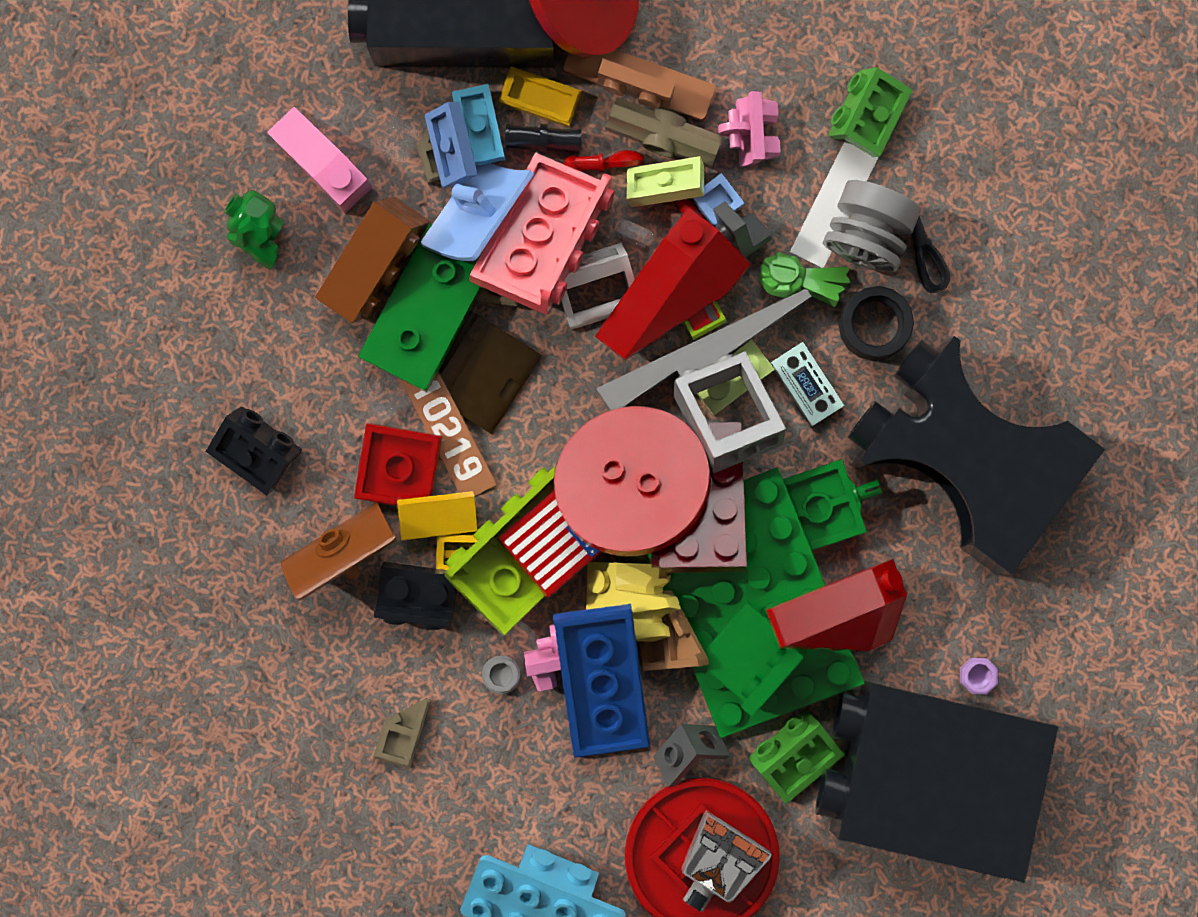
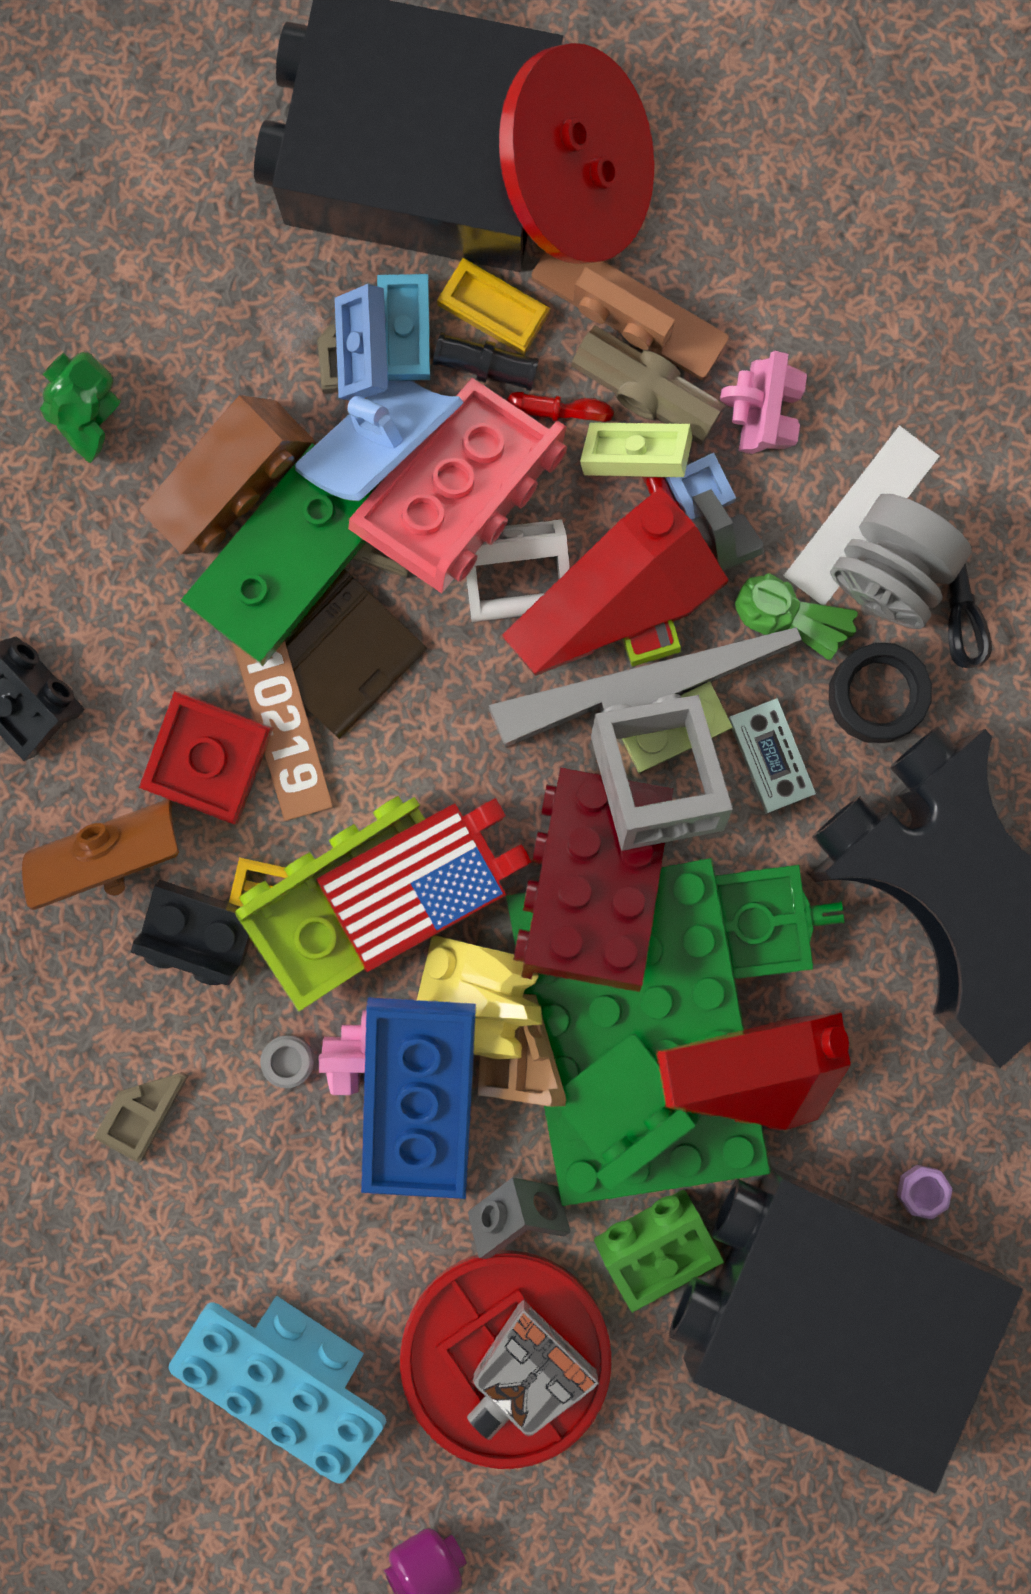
camera: 10 degrees right, 0 degrees up
(320, 159) = (187, 332): bright pink slope -> none
(437, 515) = (243, 832): yellow tile -> none
(632, 481) = (511, 839): plate -> none
(635, 235) = (582, 512): clear tile -> none
(870, 110) = (928, 409): bright green bracket -> none

